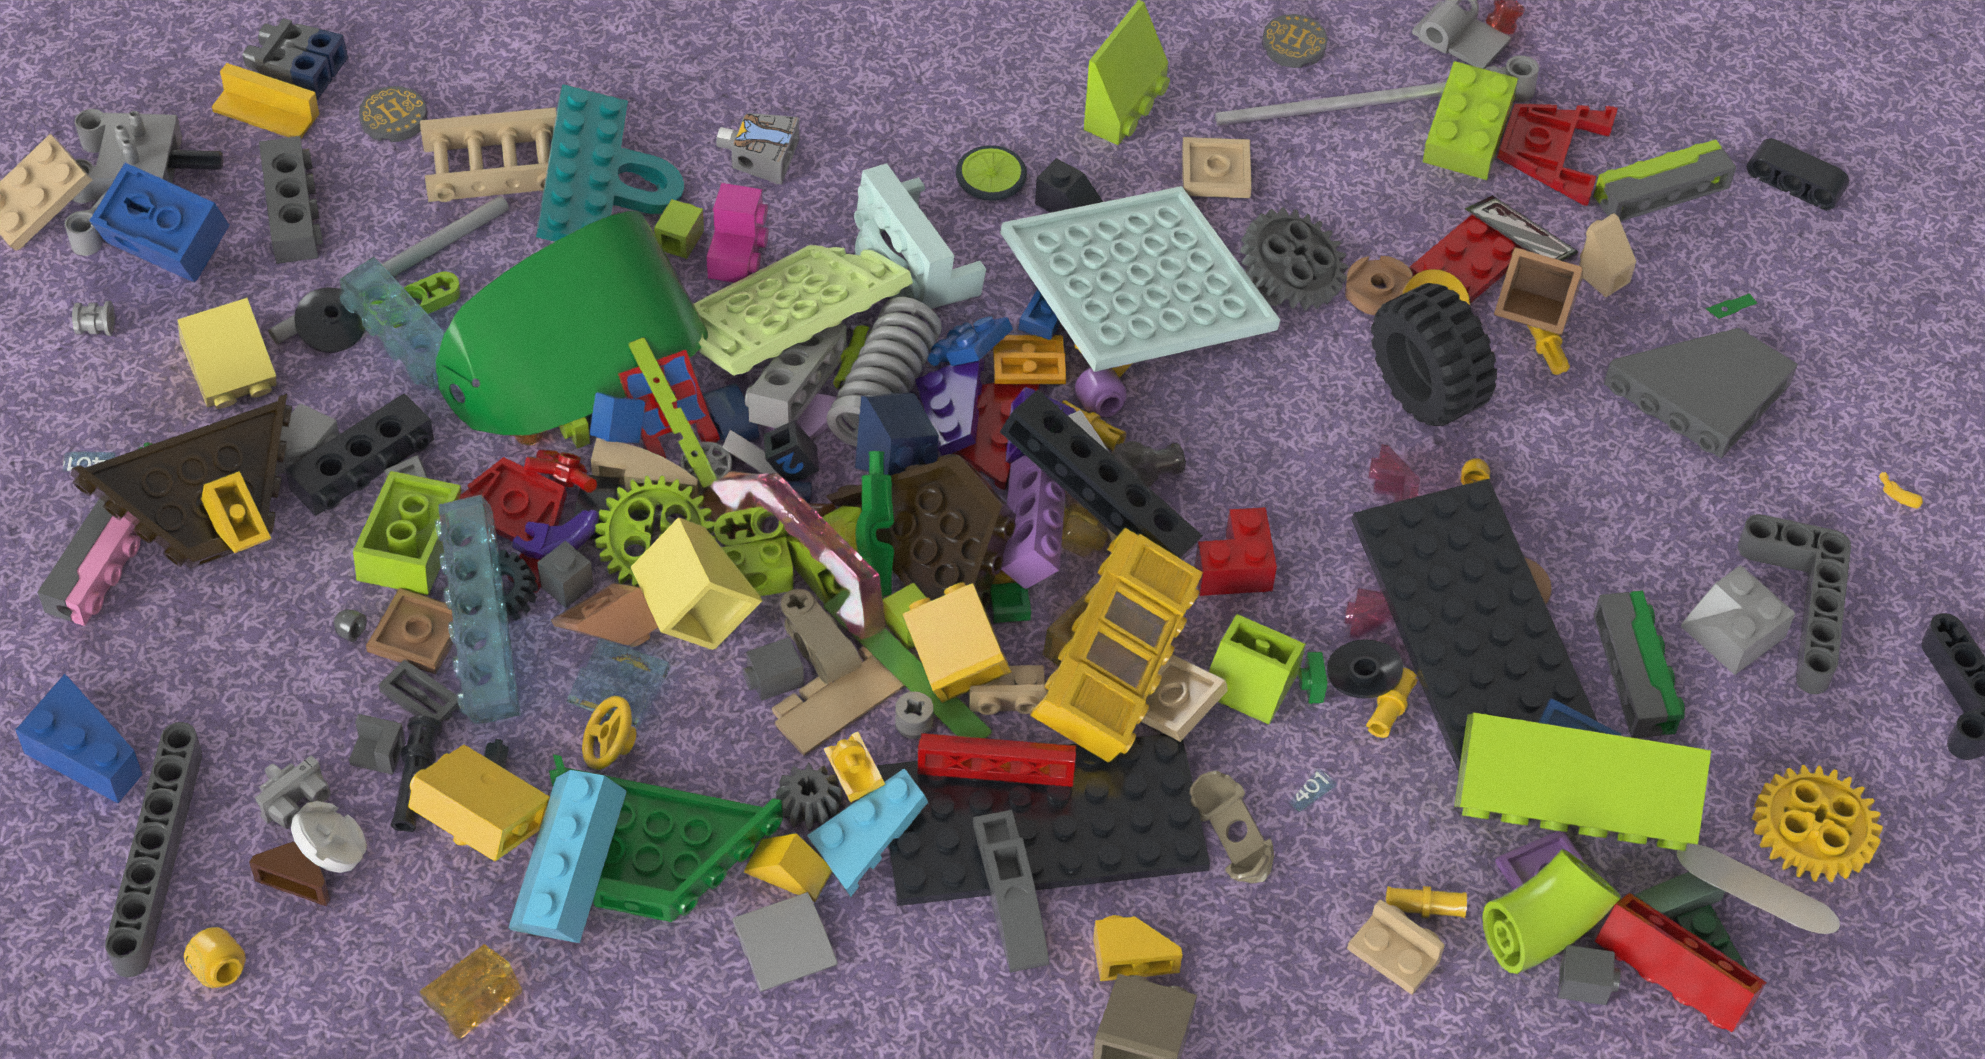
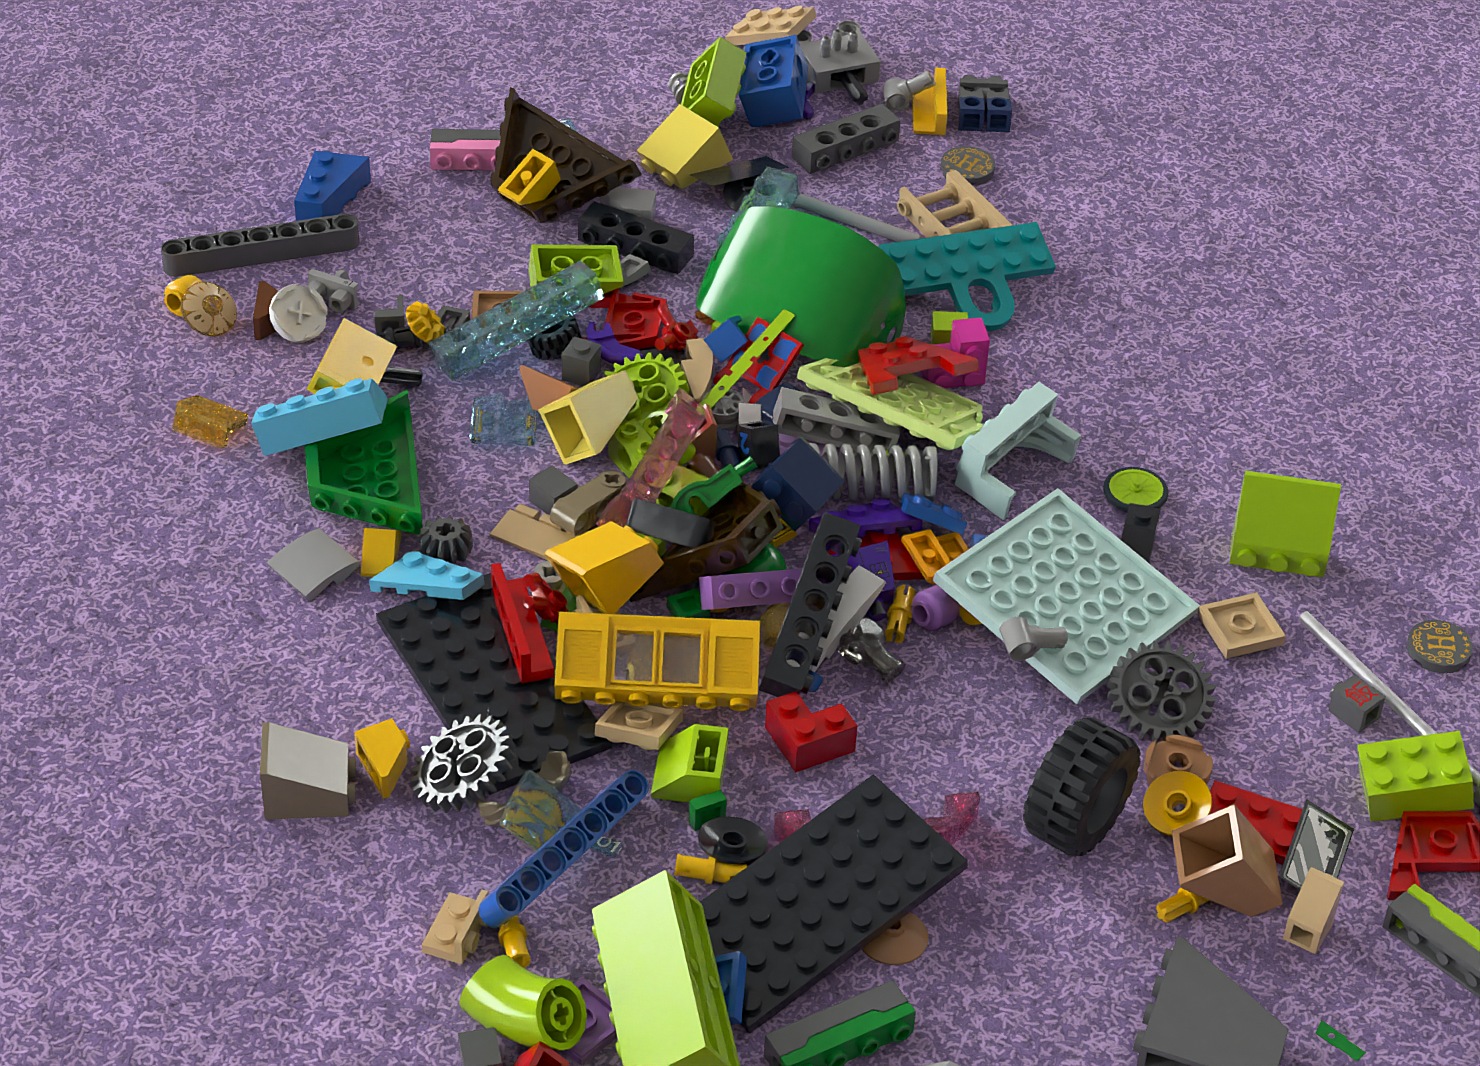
camera: 70 degrees right, 10 degrees down
(143, 281) = (715, 81): none -> lime brick
(234, 121) = (905, 90): none -> light grey pin
(260, 936) = (202, 315): none -> tan dish
(300, 315) = (737, 171): none -> black sticker
(350, 624) = (487, 278): dark grey hinge -> none
(428, 705) = (424, 322): none -> yellow gear
(614, 735) = (450, 422): yellow piece -> none
(734, 275) = (907, 355): none -> red wing
(762, 145) = (1069, 353): light grey torso -> none
(854, 767) = (477, 548): yellow hips -> none
(925, 564) = (669, 524): none -> black beam
(965, 722) = (543, 598): none -> red piece
(1012, 891) = (395, 666): dark grey slope -> none
(1200, 840) = (463, 763): none -> dark grey gear
(1213, 325) = (1025, 639): none -> light grey pin
(1281, 827) = (536, 811): none -> clear light blue slope
(1344, 814) = (563, 849): none -> blue beam
(1353, 126) = (1356, 703): none -> dark grey brick
(1474, 469) = (1000, 876): yellow hinge -> none

